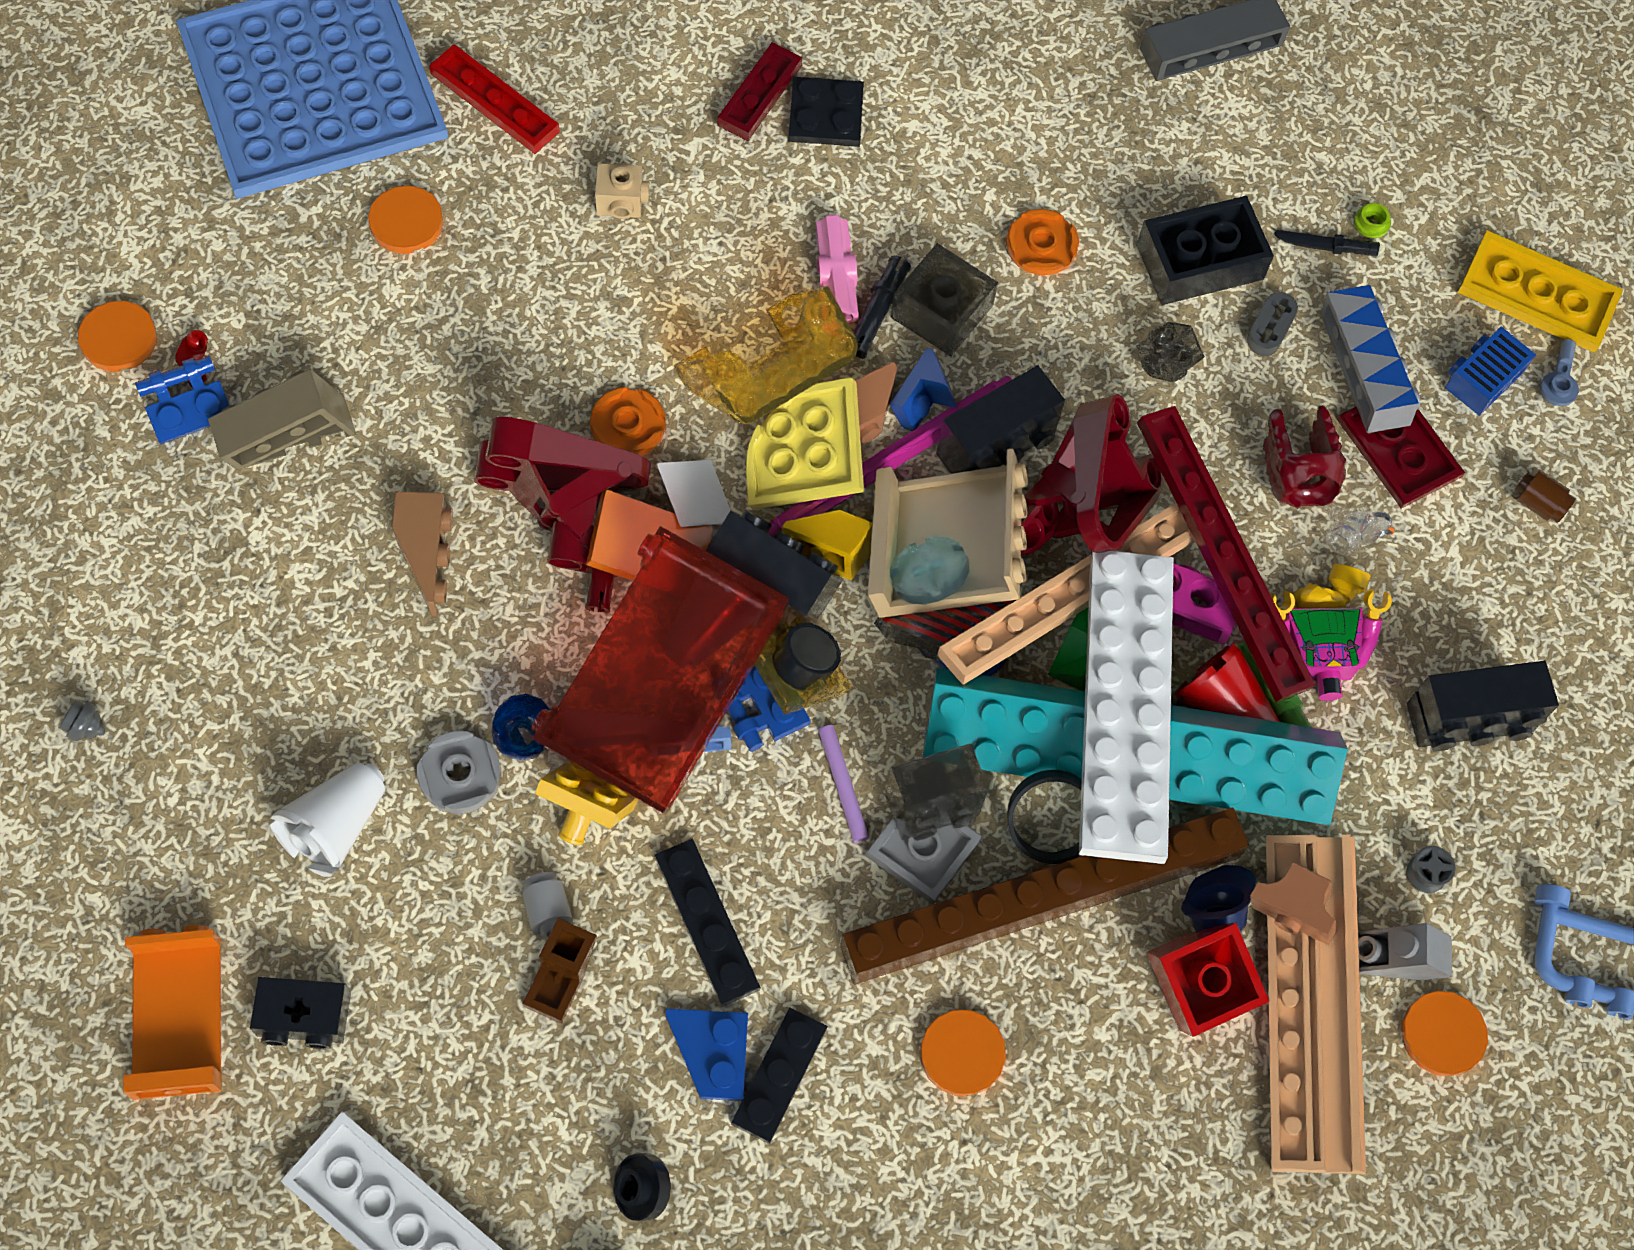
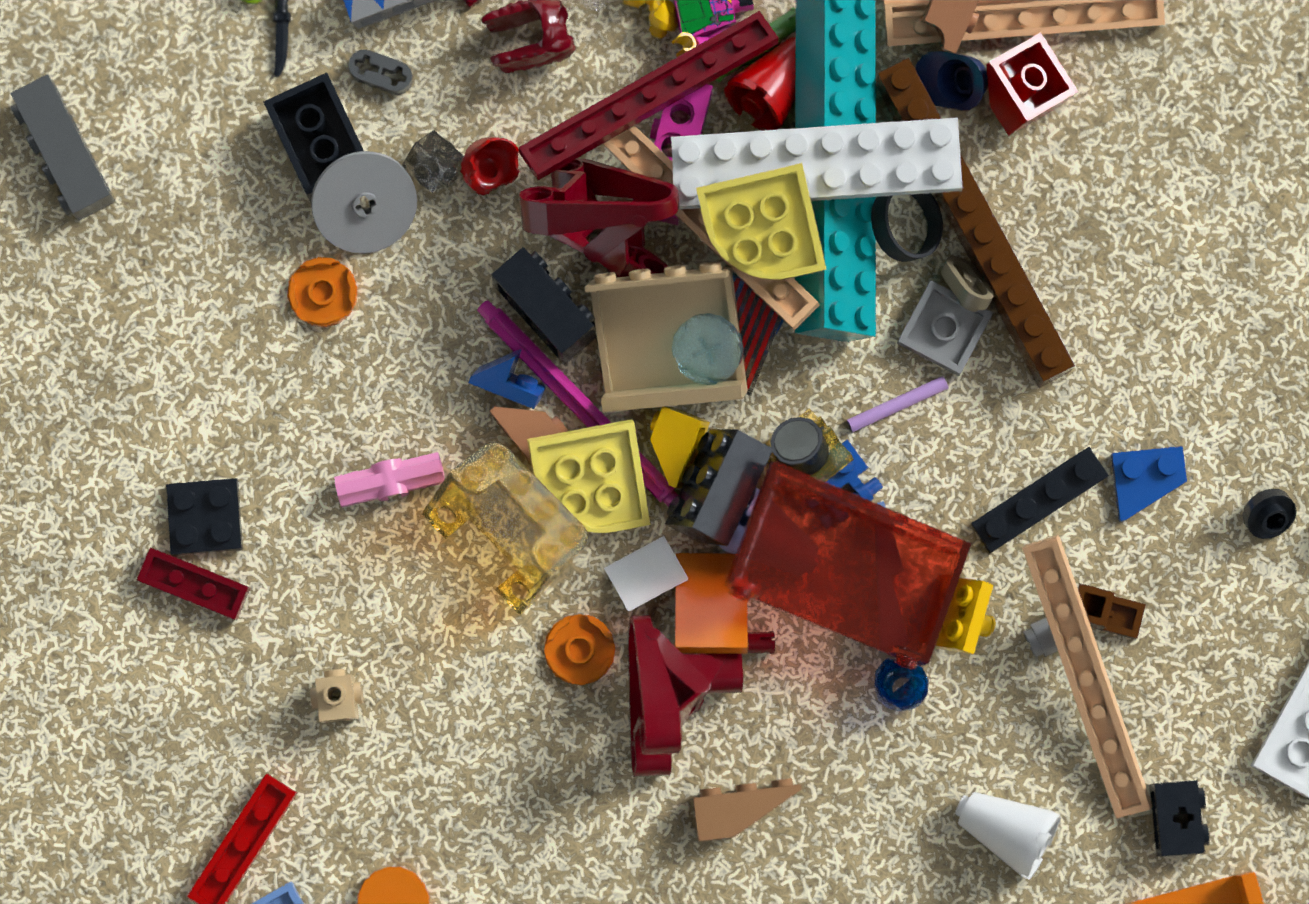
camera: 90 degrees left, 15 degrees up
(455, 795) = (940, 752): light grey plate -> none
(485, 924) = (1087, 676): none -> light nougat plate
(779, 1075) = (1156, 420): black plate -> none
(879, 303) = (420, 436): black pin -> none
(936, 792) = (914, 317): clear smoke brick -> none
(943, 299) = (412, 373): clear smoke brick -> none
(963, 1052) = (1112, 276): orange tile -> none
(971, 871) = (967, 284): none -> dark tan plate
(1061, 627) = (764, 223): none -> light yellow plate
(1155, 287) = (390, 205): none -> light grey piece
(1161, 392) = (490, 164): none -> red hair

